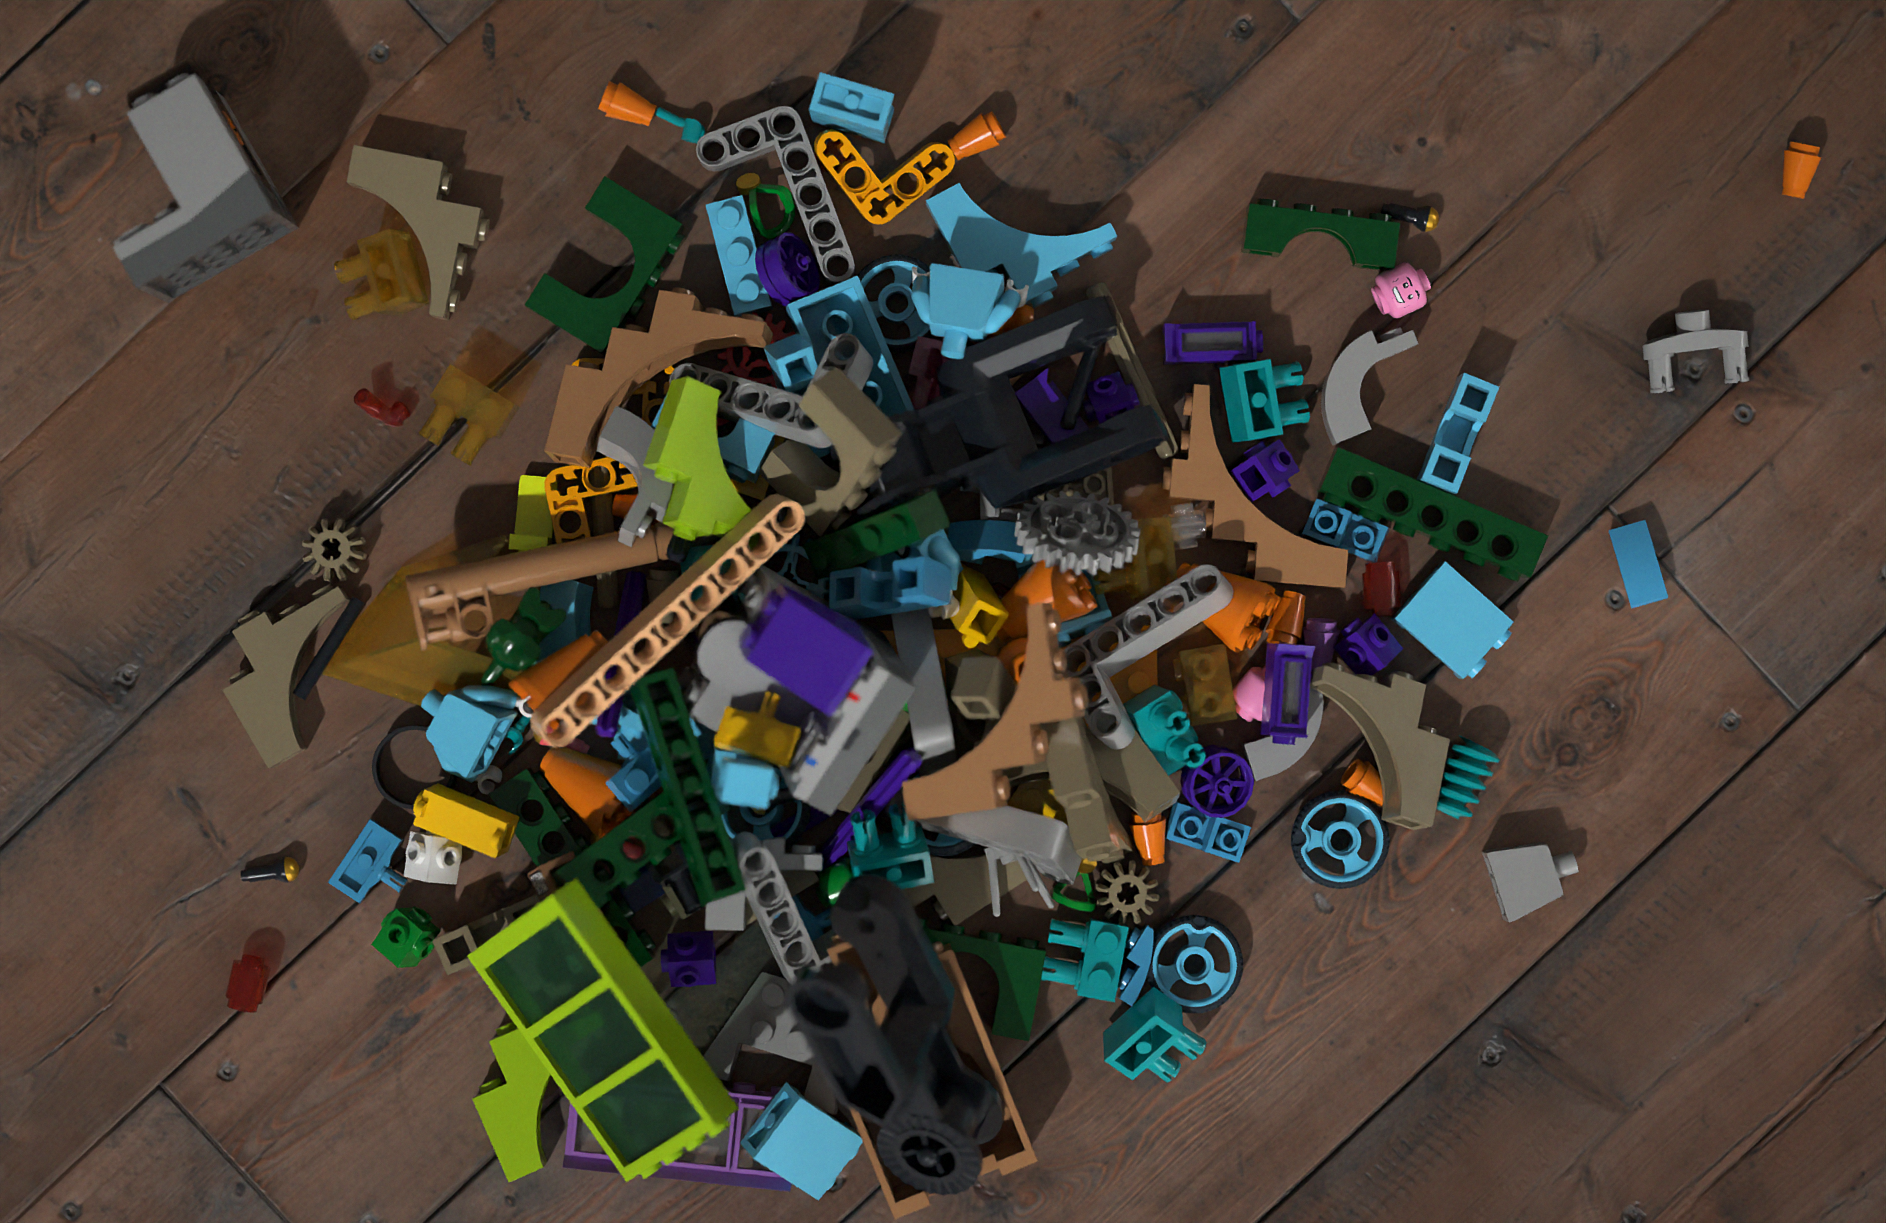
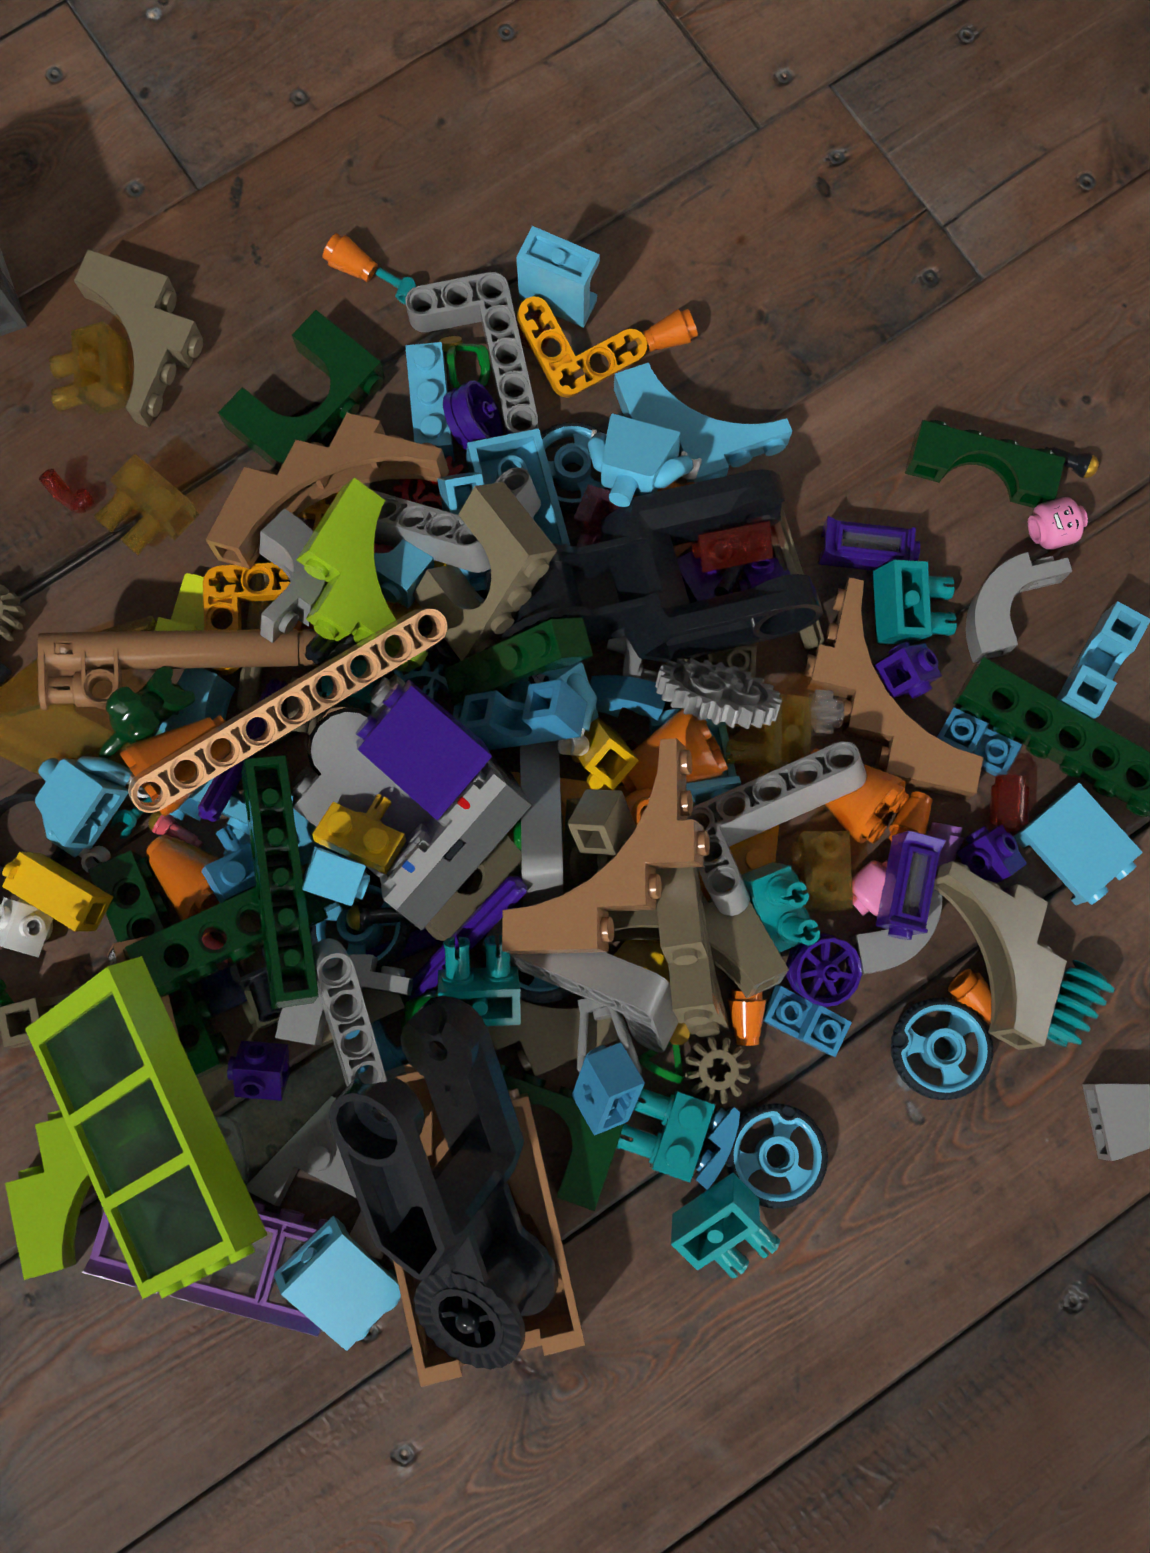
camera: 10 degrees right, 10 degrees down
(1024, 928) = (607, 1088): none -> dark azure brick
(1073, 375) = (734, 546): none -> clear red hinge

